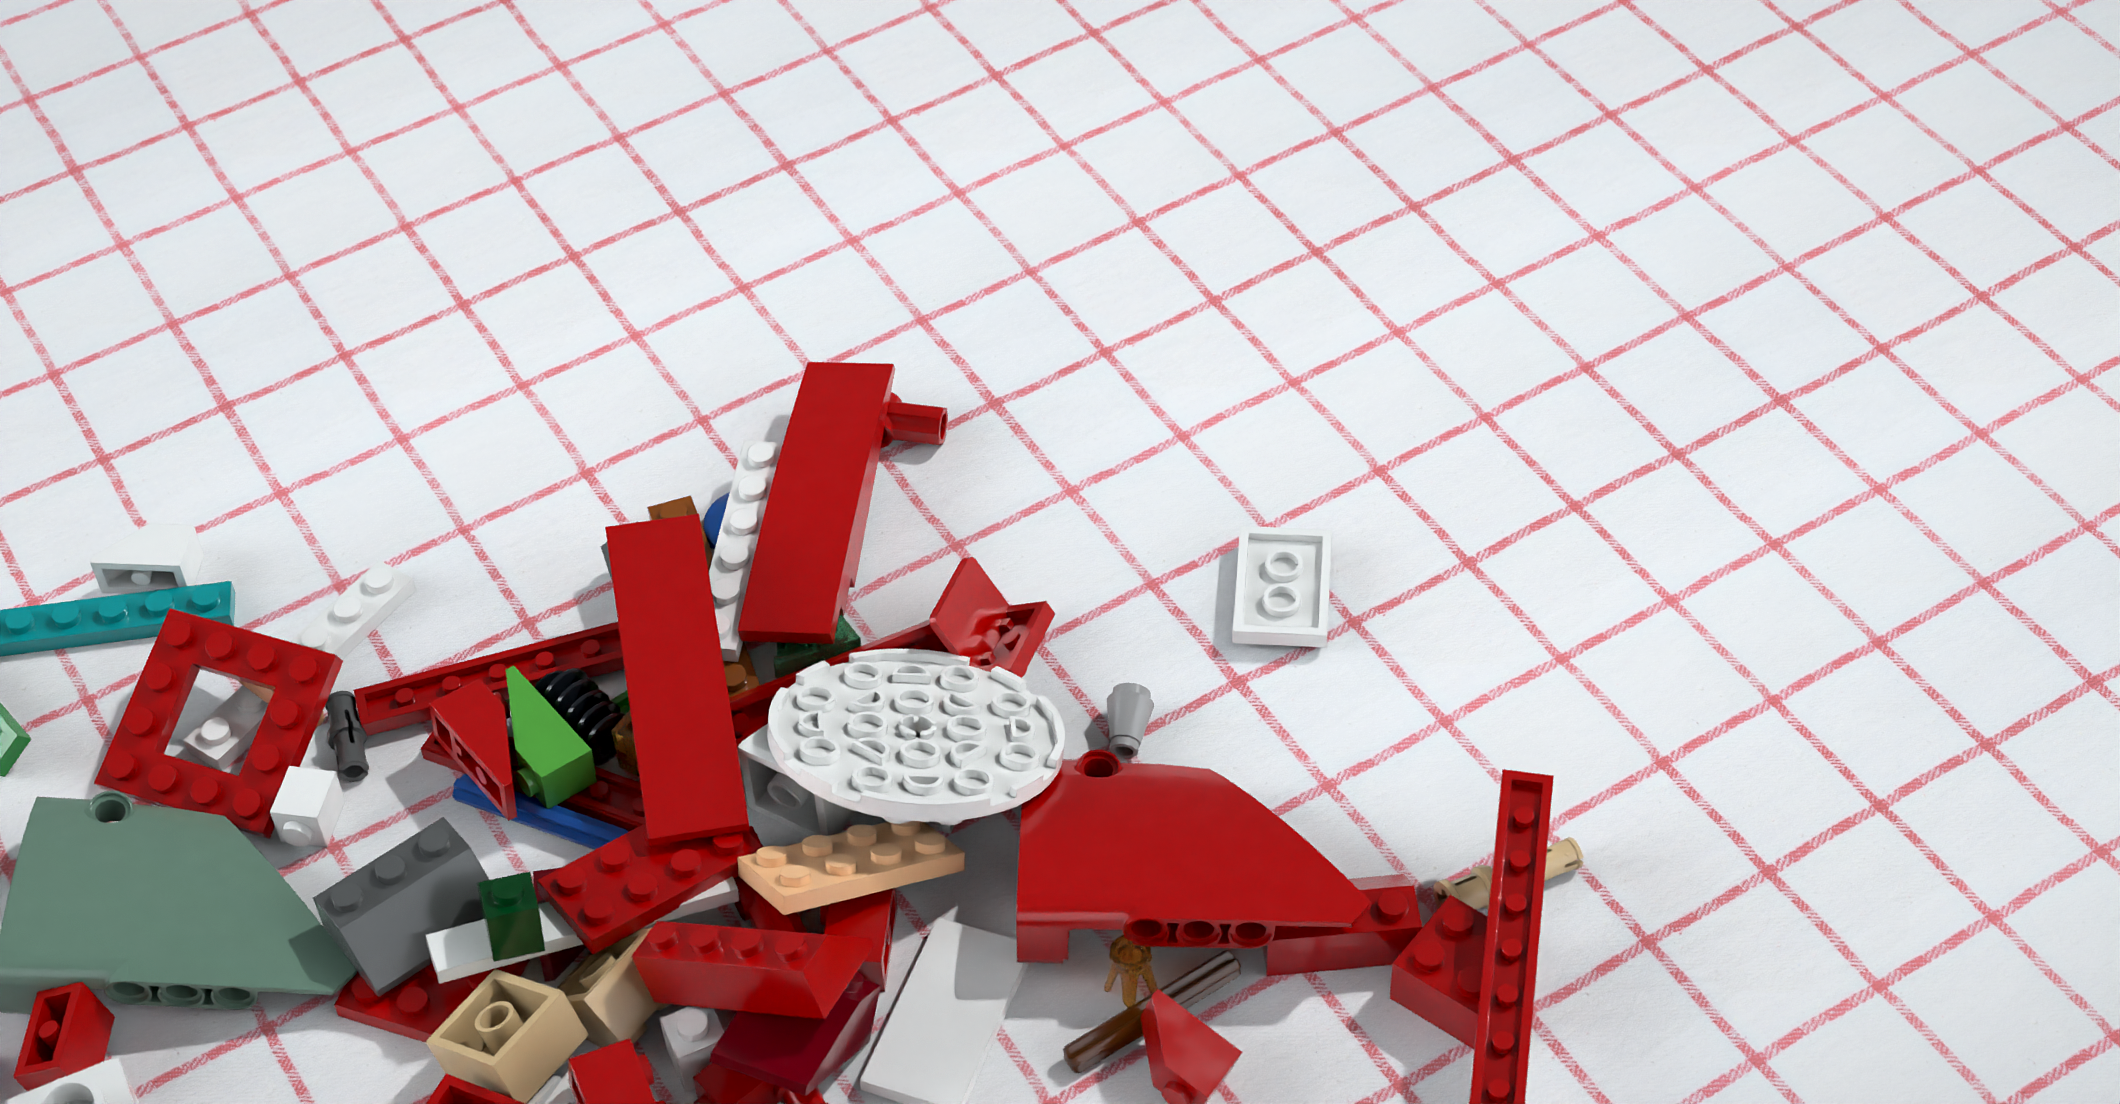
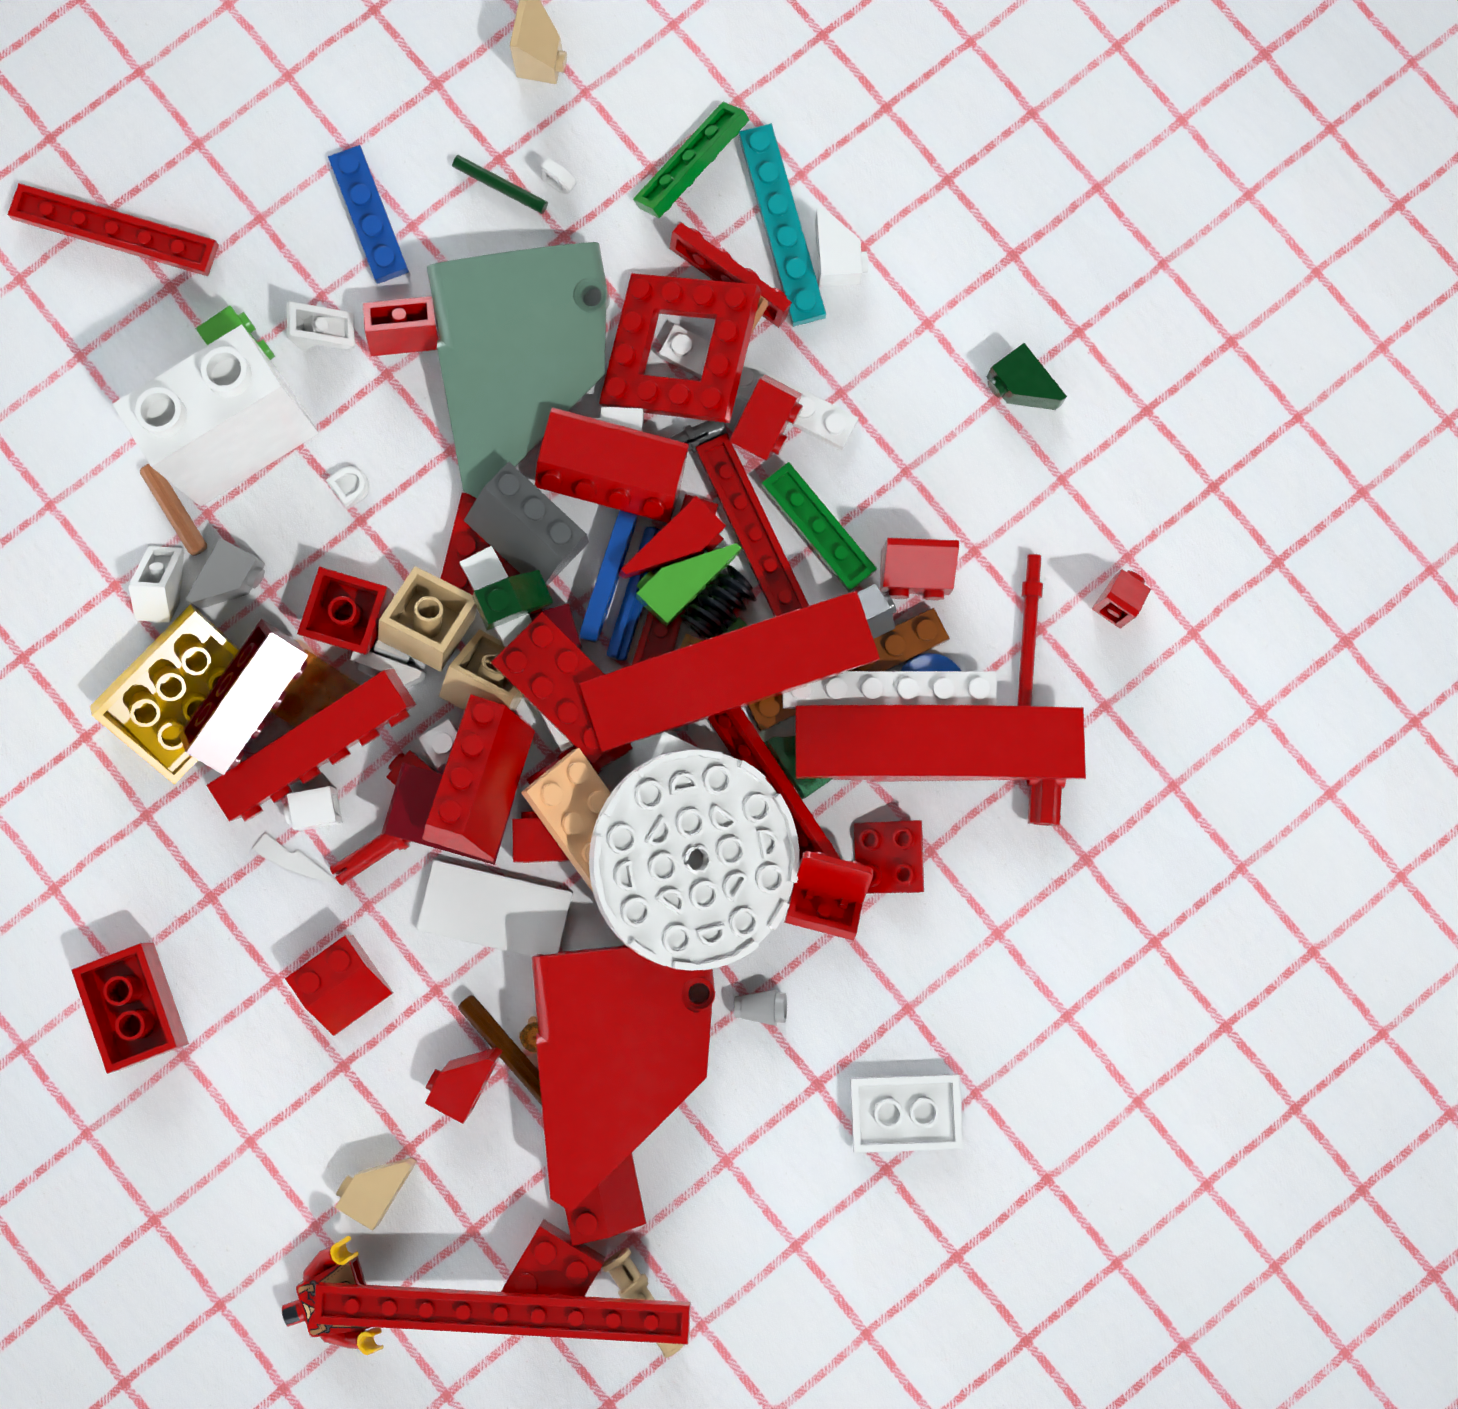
camera: 75 degrees right, 35 degrees up
(109, 690) = (720, 266): none -> red plate
(344, 626) = (767, 417): none -> red brick
(354, 799) = (611, 465): none -> red slope
(389, 395) = (1024, 381): none -> dark green slope
(502, 834) = (608, 576): none -> blue beam
(508, 611) = (818, 527): none -> green plate
(586, 498) = (918, 567): none -> slope
(654, 417) = (1031, 590): none -> red bar
(687, 329) = (1122, 598): none -> slope
(936, 557) = (893, 853): none -> red hinge

